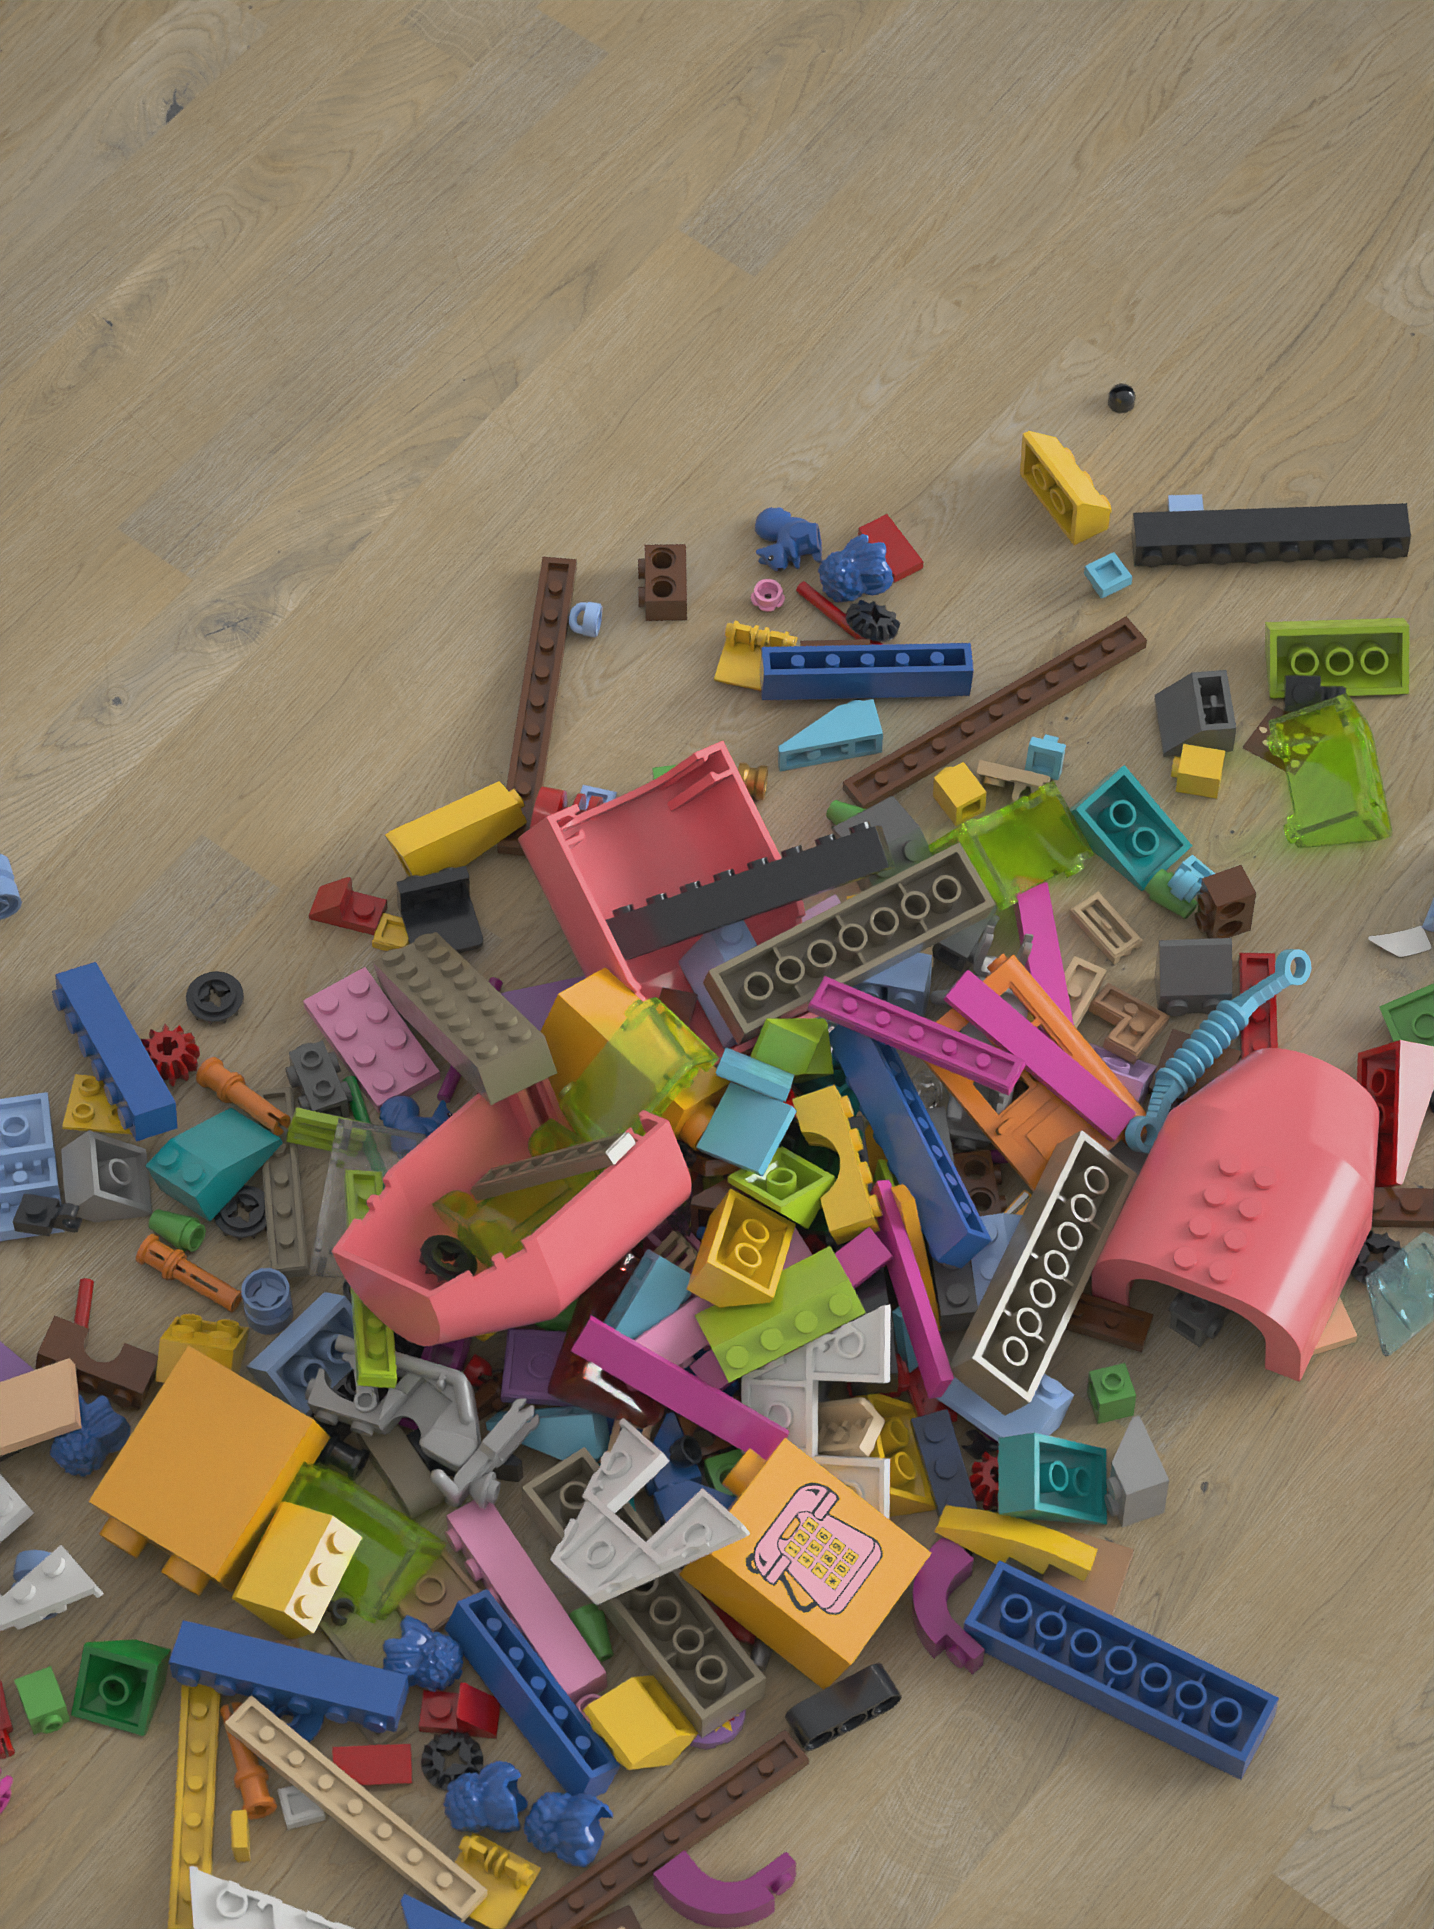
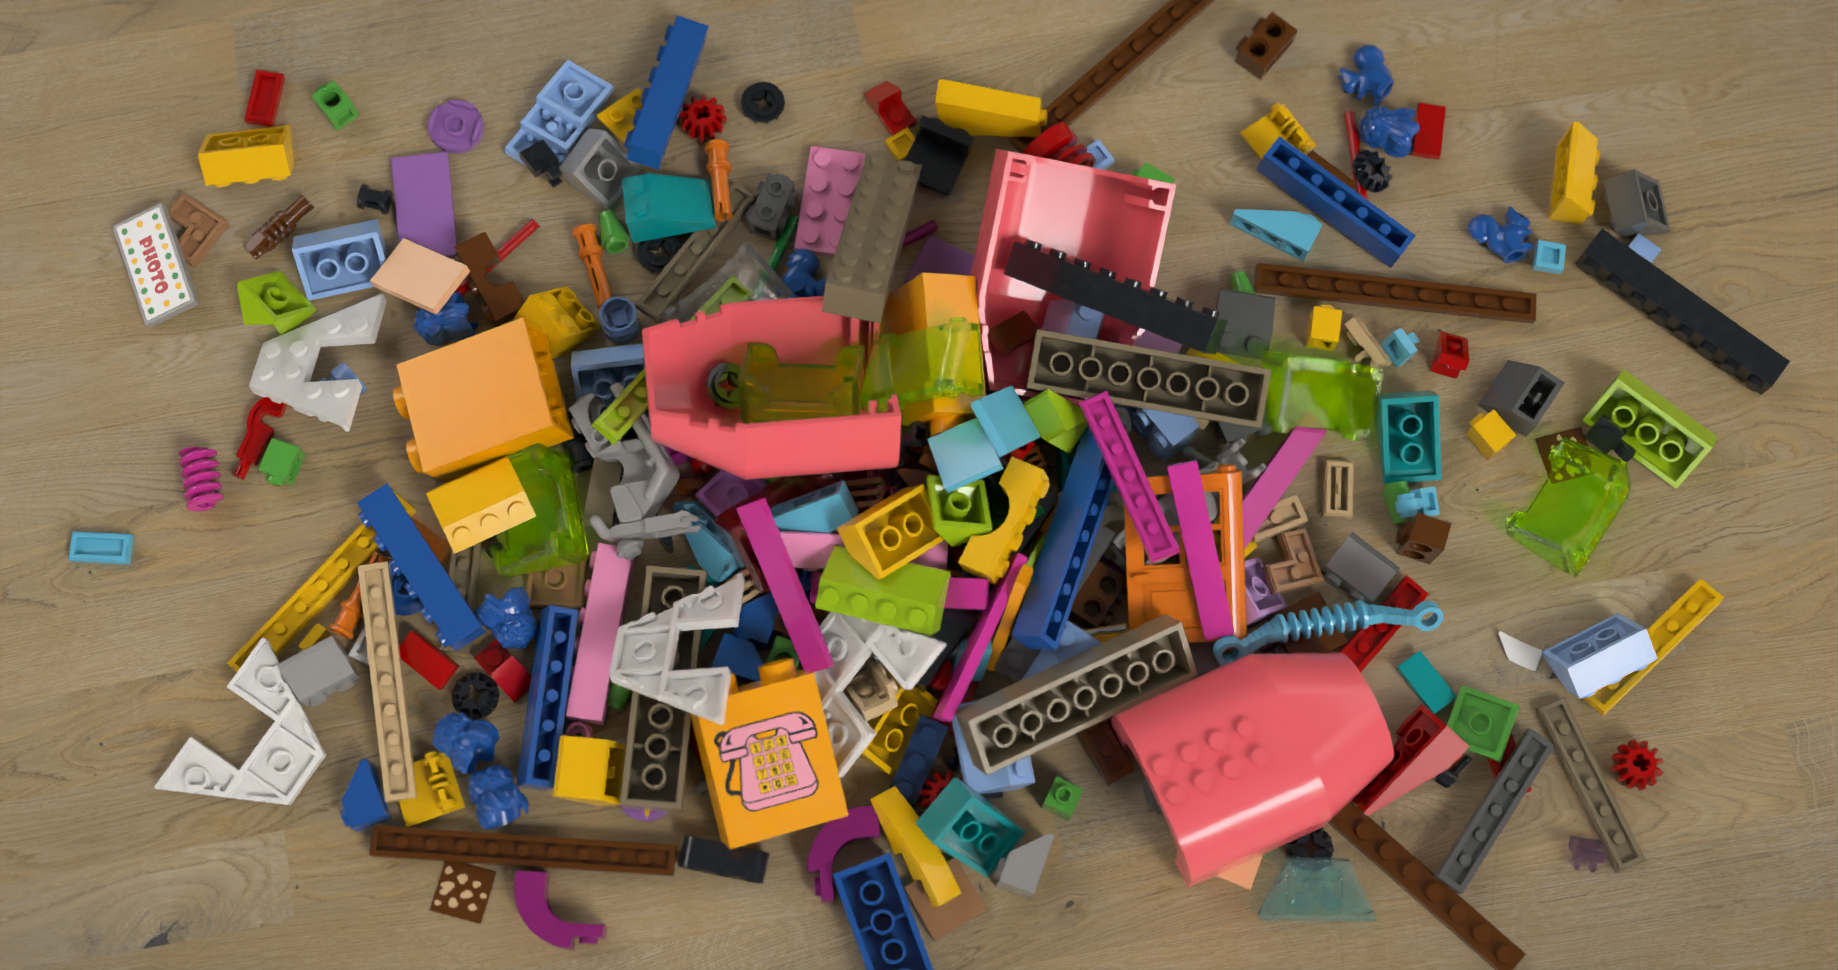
camera: 35 degrees right, 15 degrees up
(120, 1683) = (332, 488): green slope -> none
(278, 1853) = (319, 672): none -> light grey slope
(312, 1136) = (739, 233): lime tile -> none
(553, 1166) = (824, 383): dark tan tile -> none
(591, 620) = (1199, 34): light blue tile -> none
(685, 1452) = (770, 617): black hinge -> none
(754, 779) = (1202, 217): pearl gold wheel -> none
(764, 589) = (1325, 97): bright pink plate -> none
(1051, 591) = (1504, 239): none -> blue animal
(1098, 730) = (1450, 355): none -> red slope
(1121, 398) = (1668, 144): black hinge -> none
(1142, 472) = (1636, 205): none -> dark grey slope
(1343, 1032) = (1426, 682): none -> teal tile

